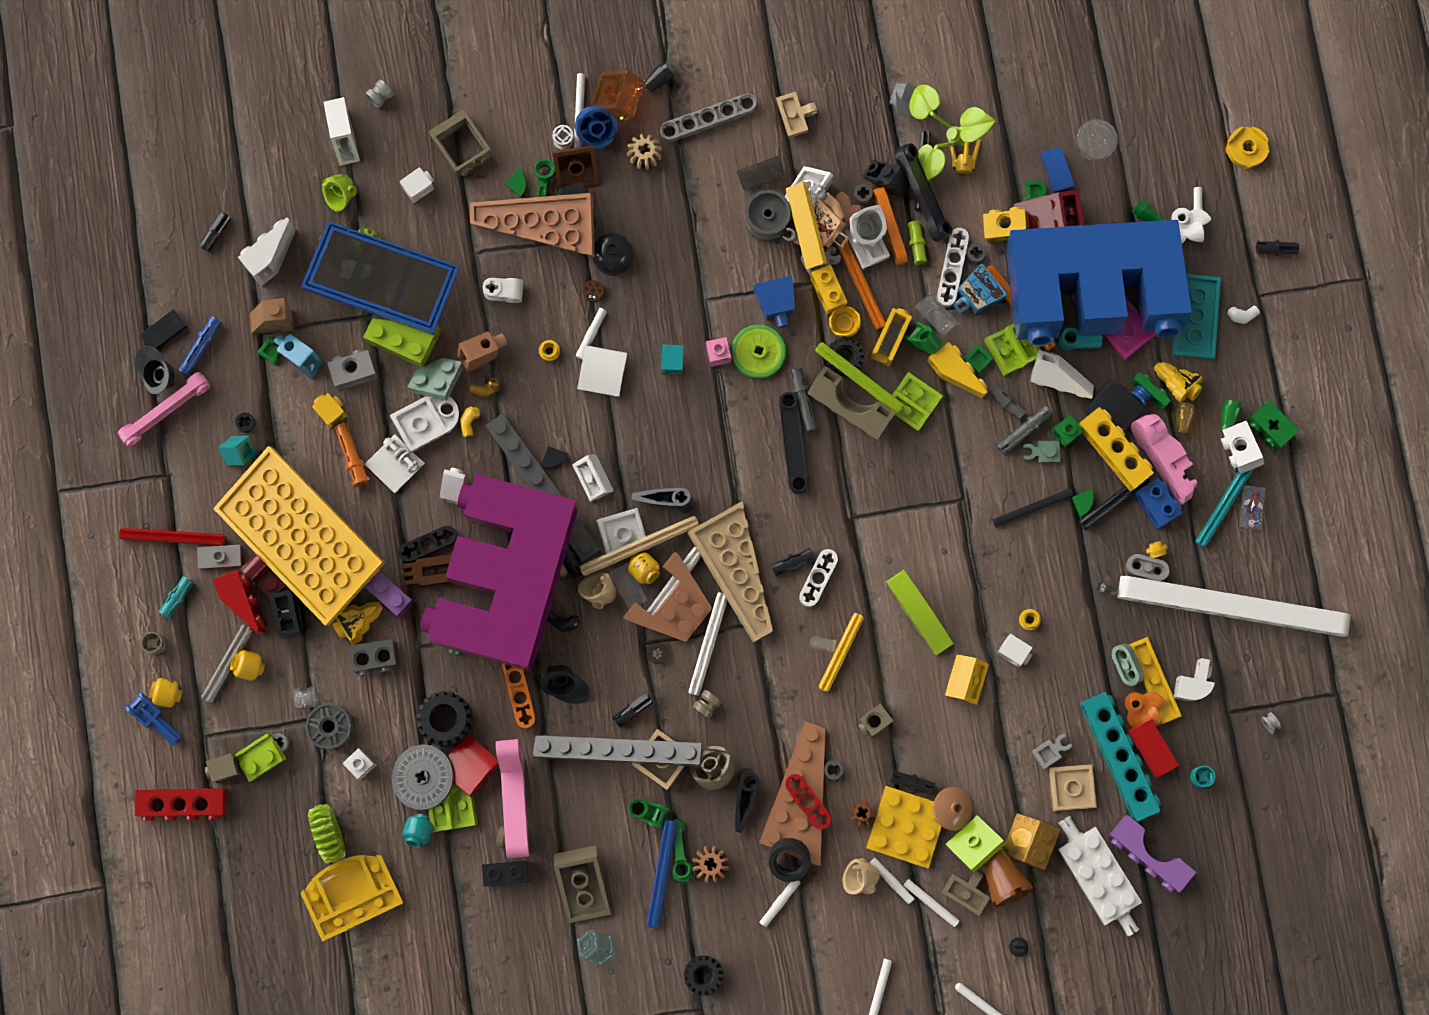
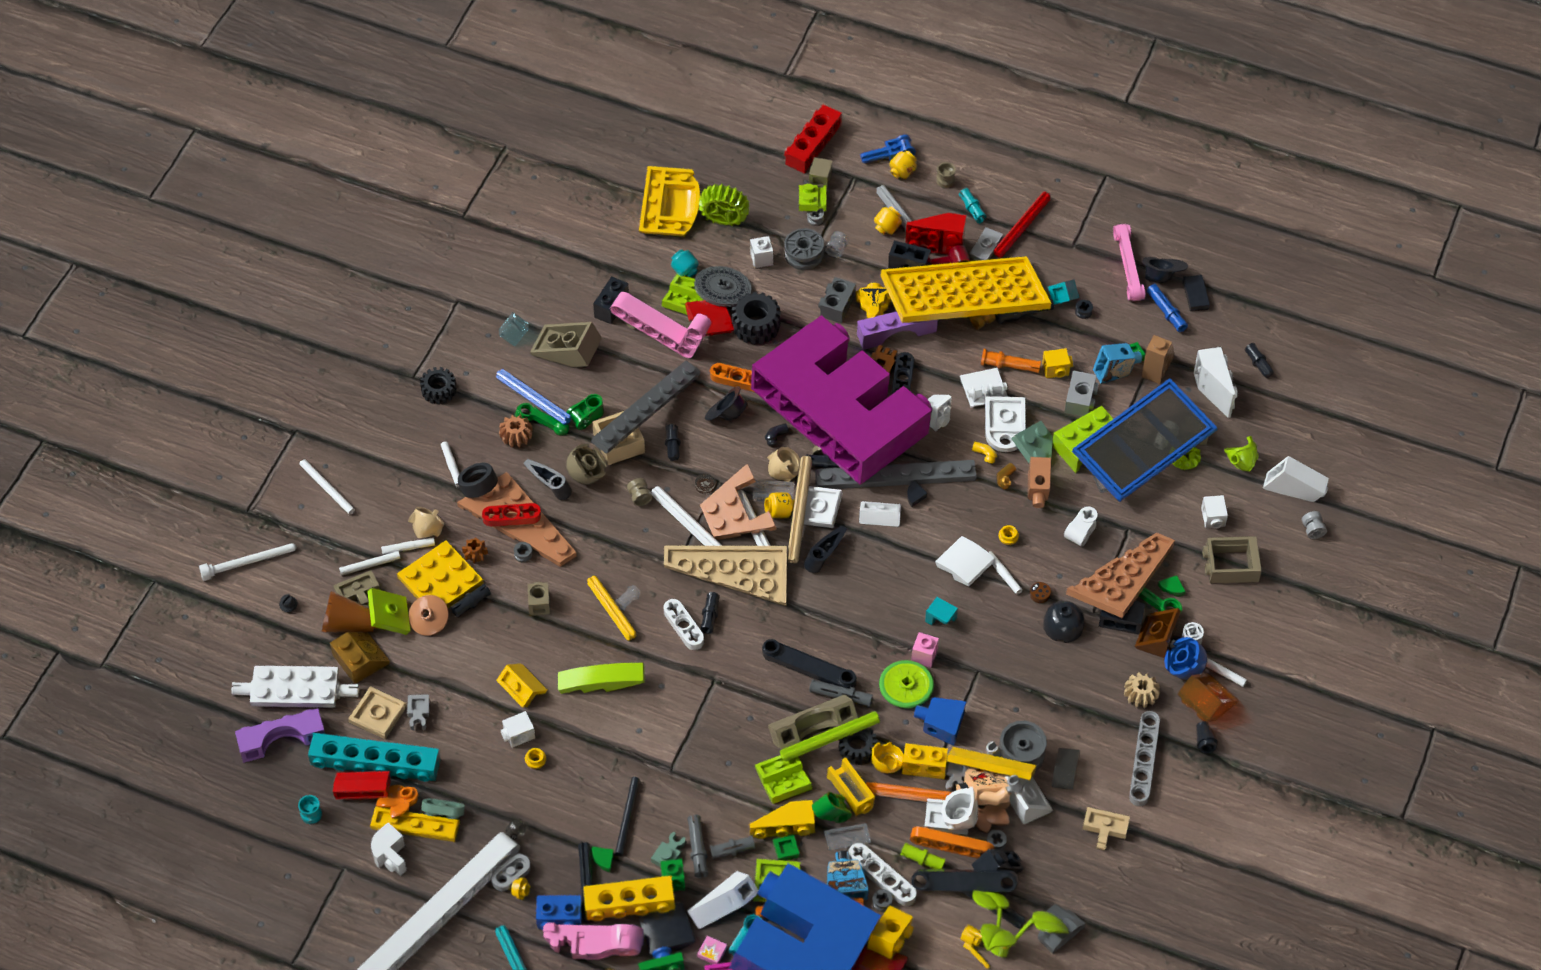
camera: 125 degrees right, 25 degrees down
(1107, 362) = (712, 950): none -> tile
(1271, 723) = (311, 889): light grey bush -> none

